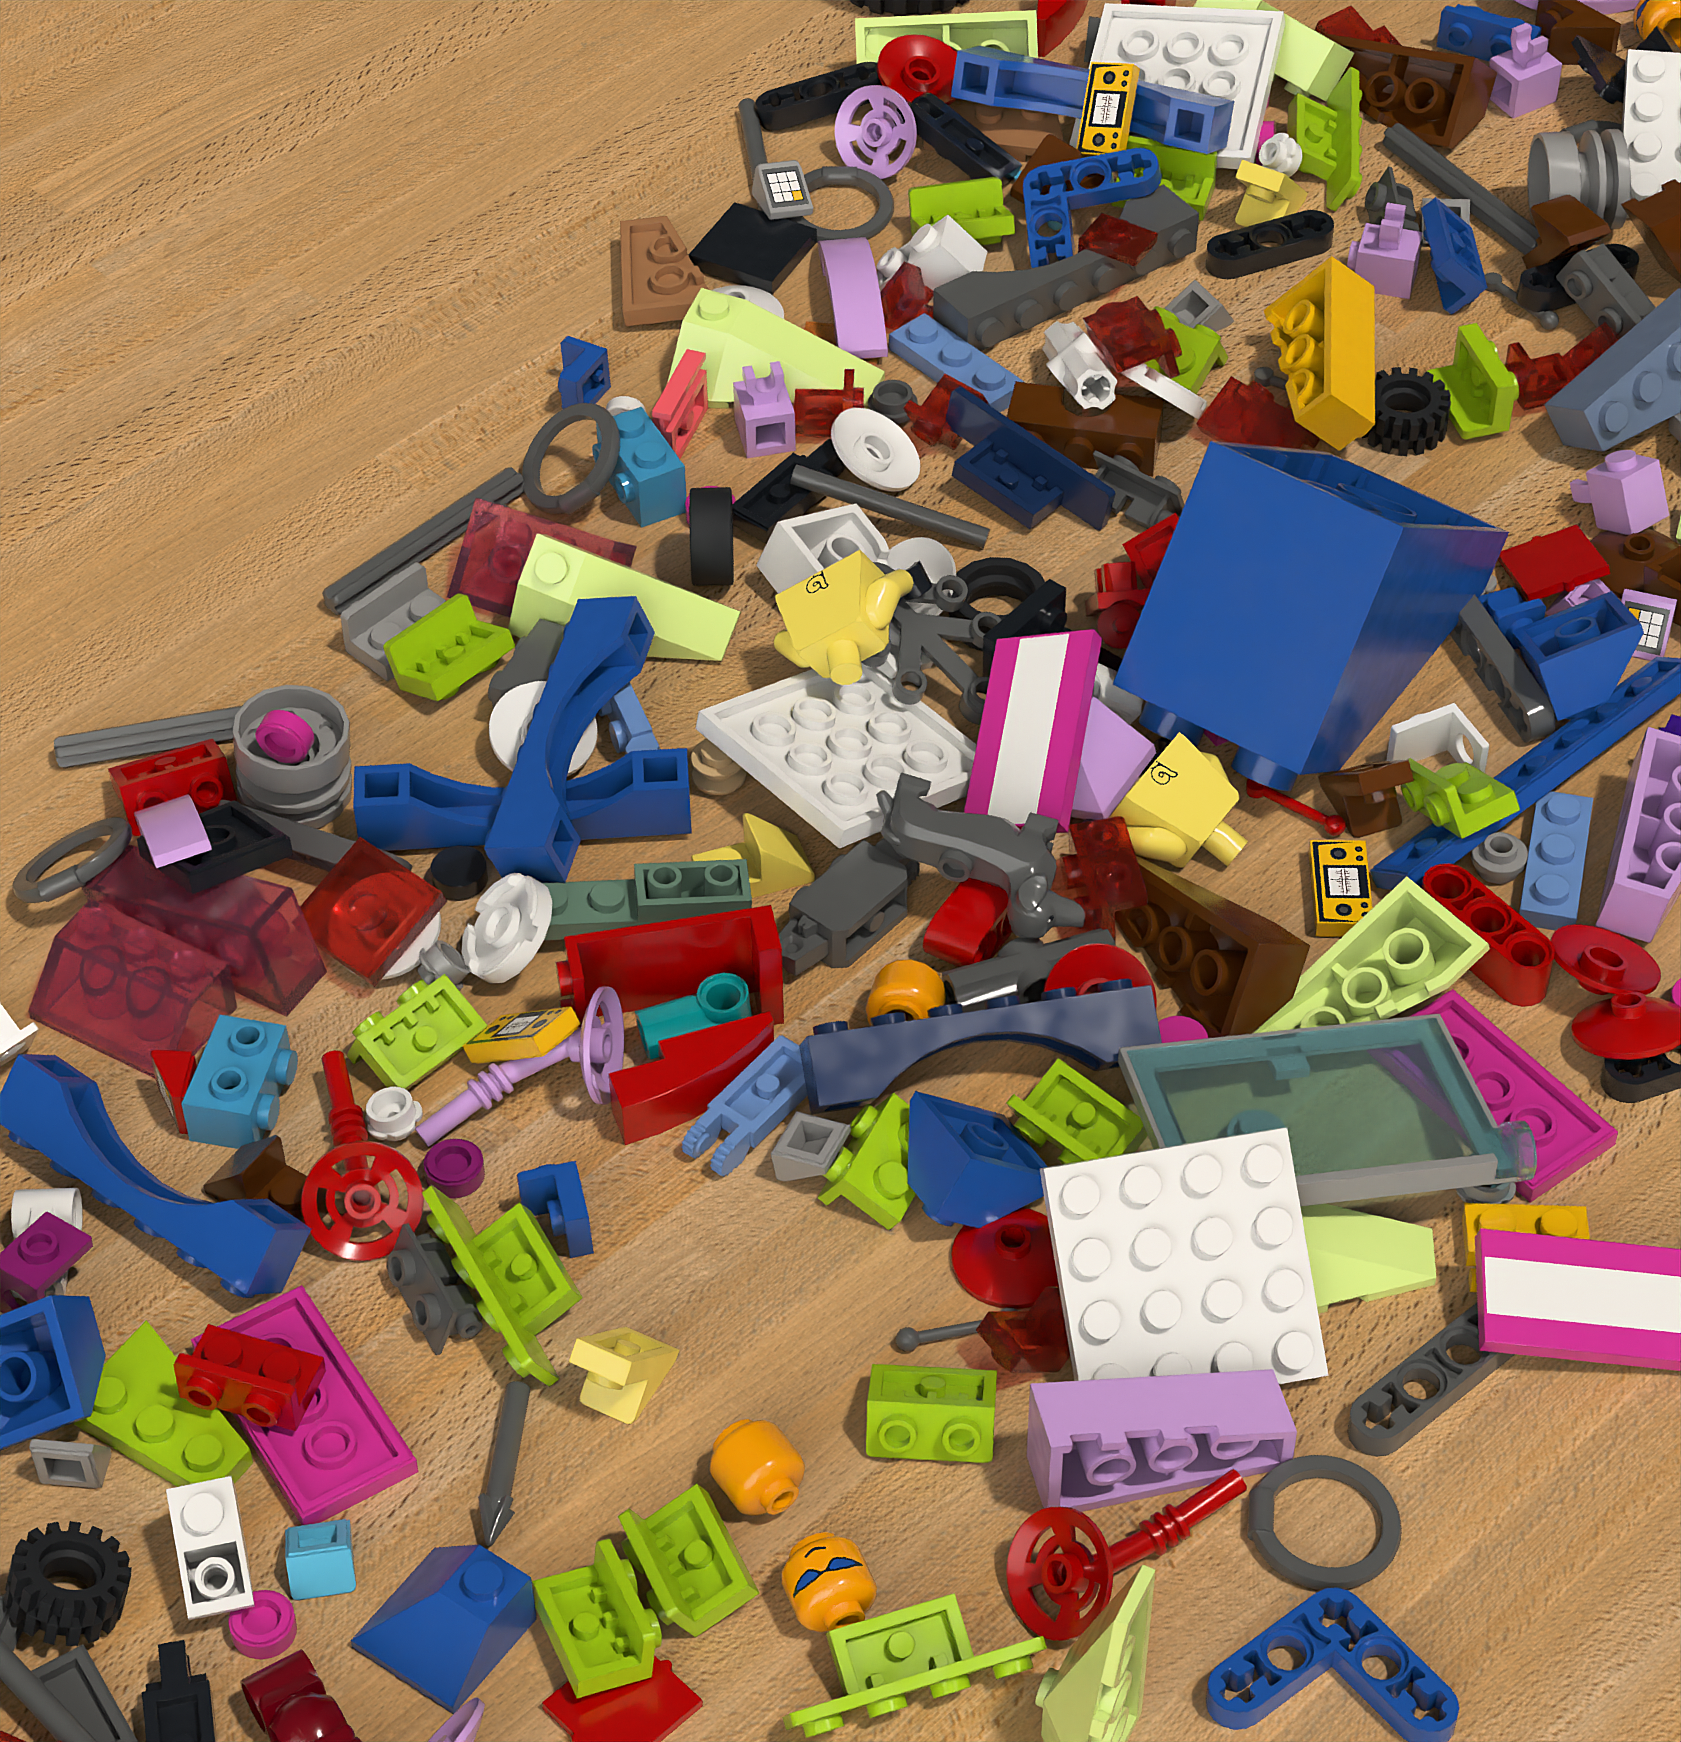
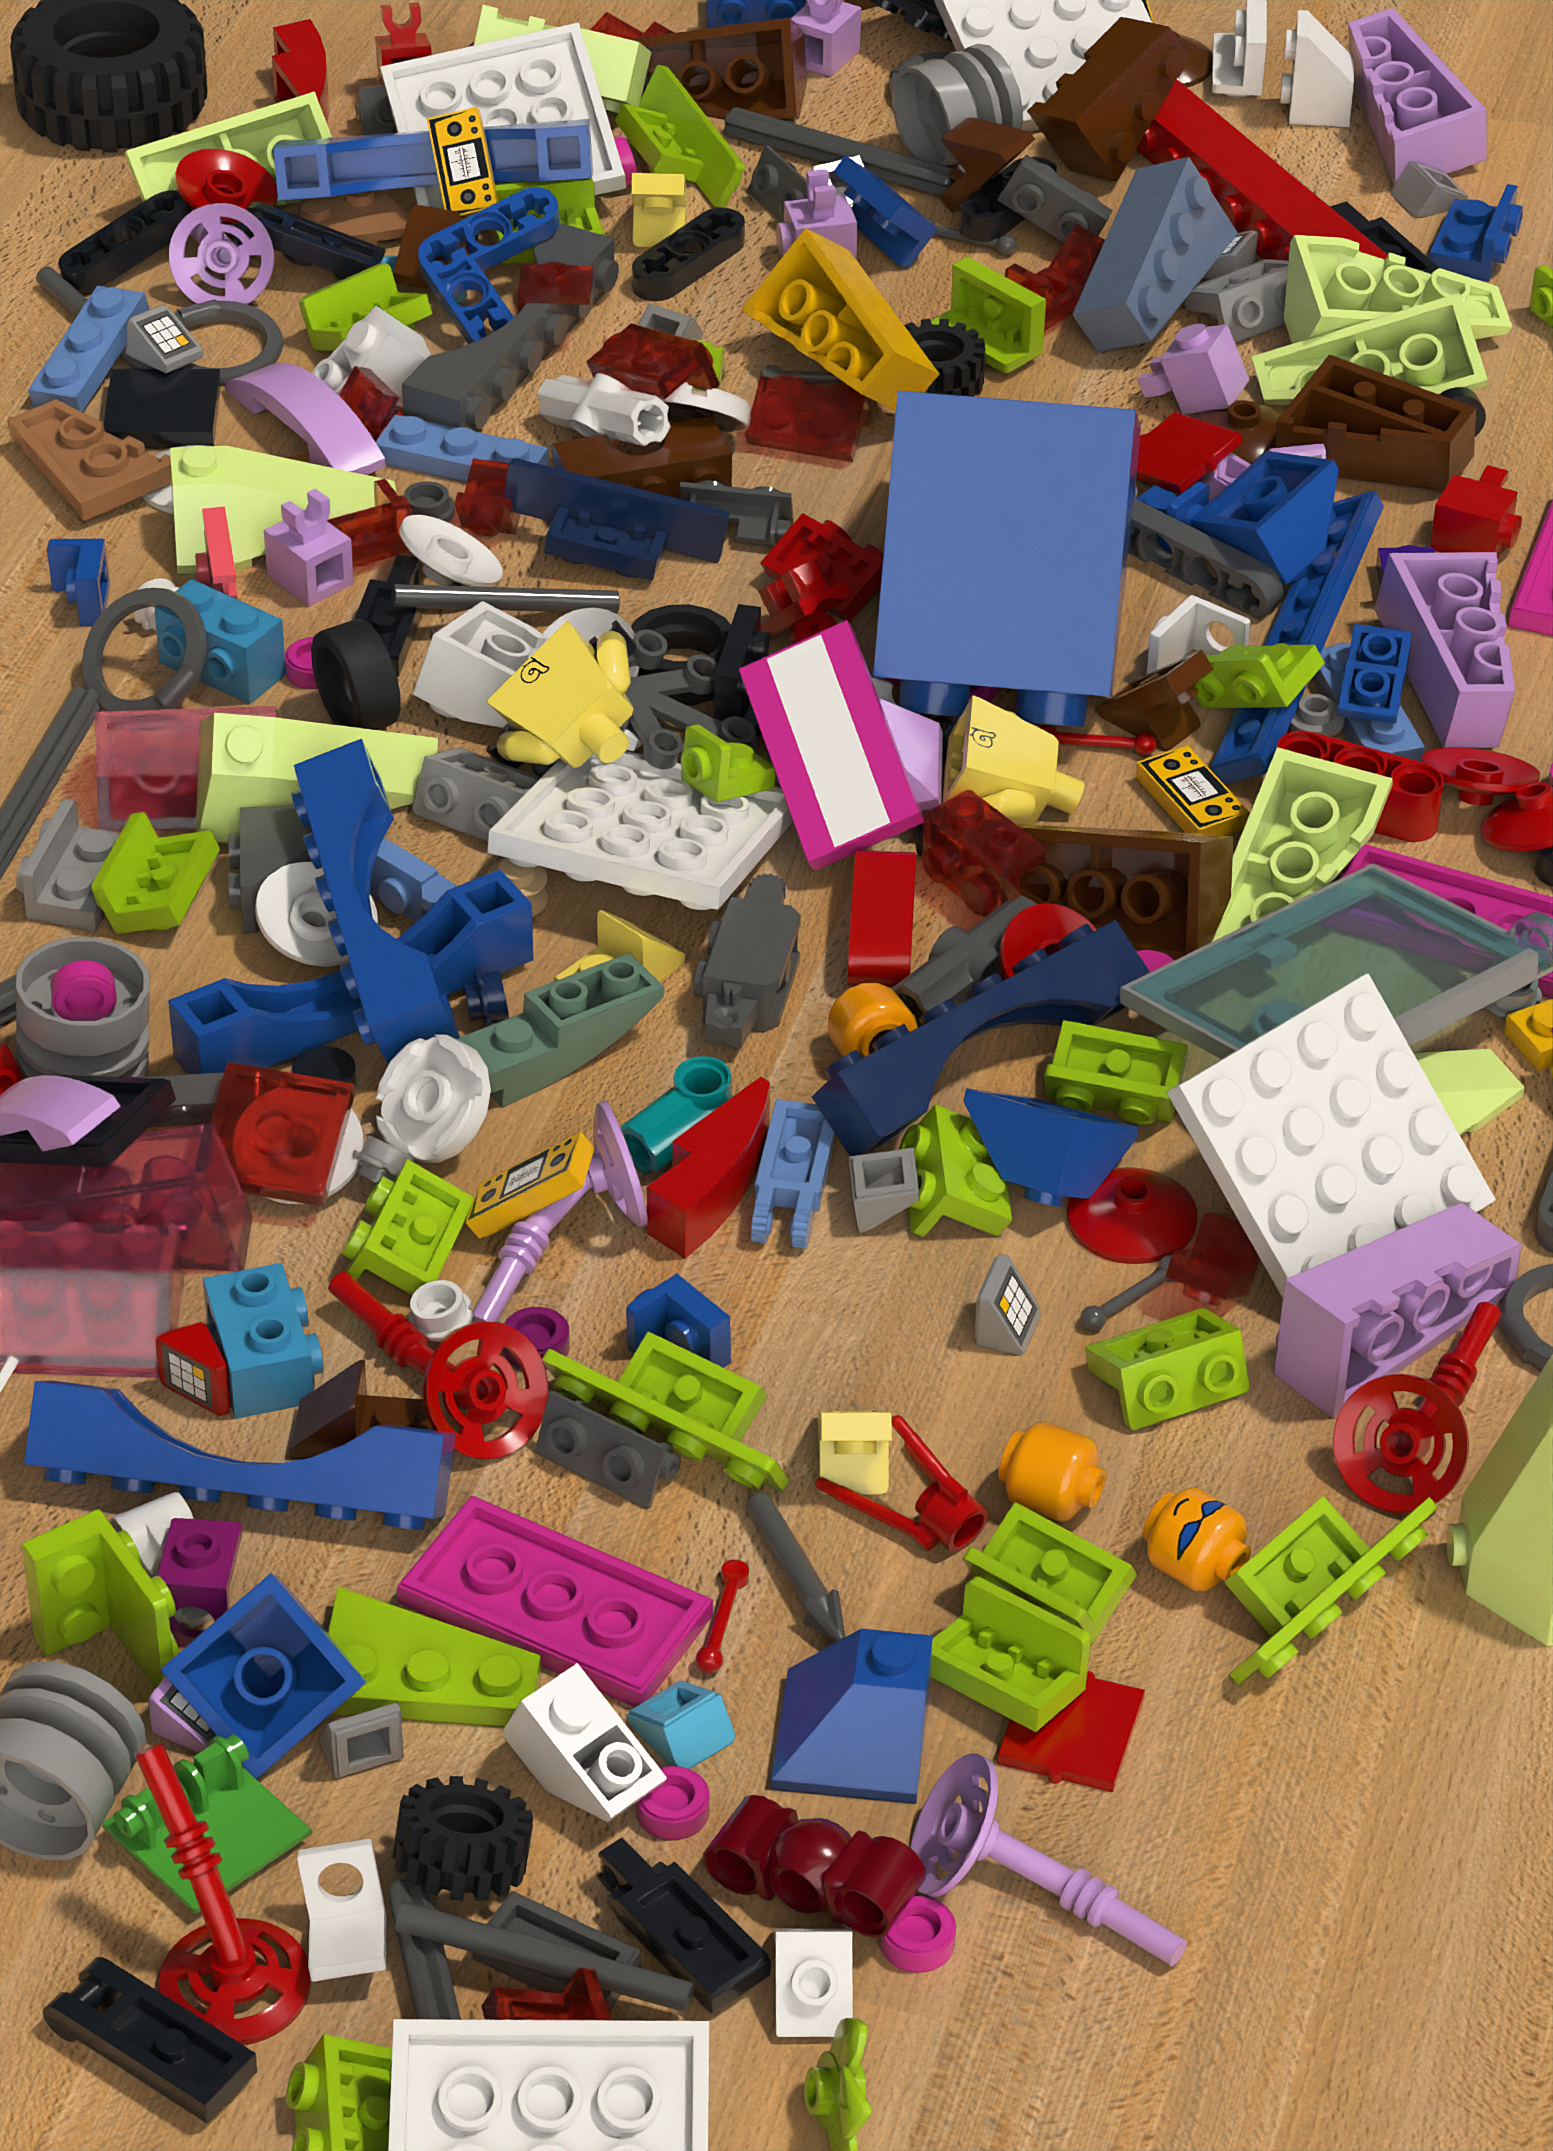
camera: 30 degrees left, 5 degrees down
(249, 1377) = (498, 1588): red bracket -> none
(456, 1445) = (733, 1577): none -> red hinge
(624, 851) = (486, 997): none -> dark blue plate
(653, 1467) = (945, 1506): none -> red plant
(673, 958) = (638, 1058): red panel -> none
(723, 181) = (88, 348): none -> medium blue plate
(742, 660) = (468, 790): none -> light grey bracket
(834, 1301) = (1005, 1309): none -> light grey slope
(942, 725) = (723, 768): none -> lime bracket
(982, 850) = (869, 860): dark grey animal -> none
(1281, 154) = (659, 159): white plate -> none
(1568, 837) = (1375, 673): none -> blue slope

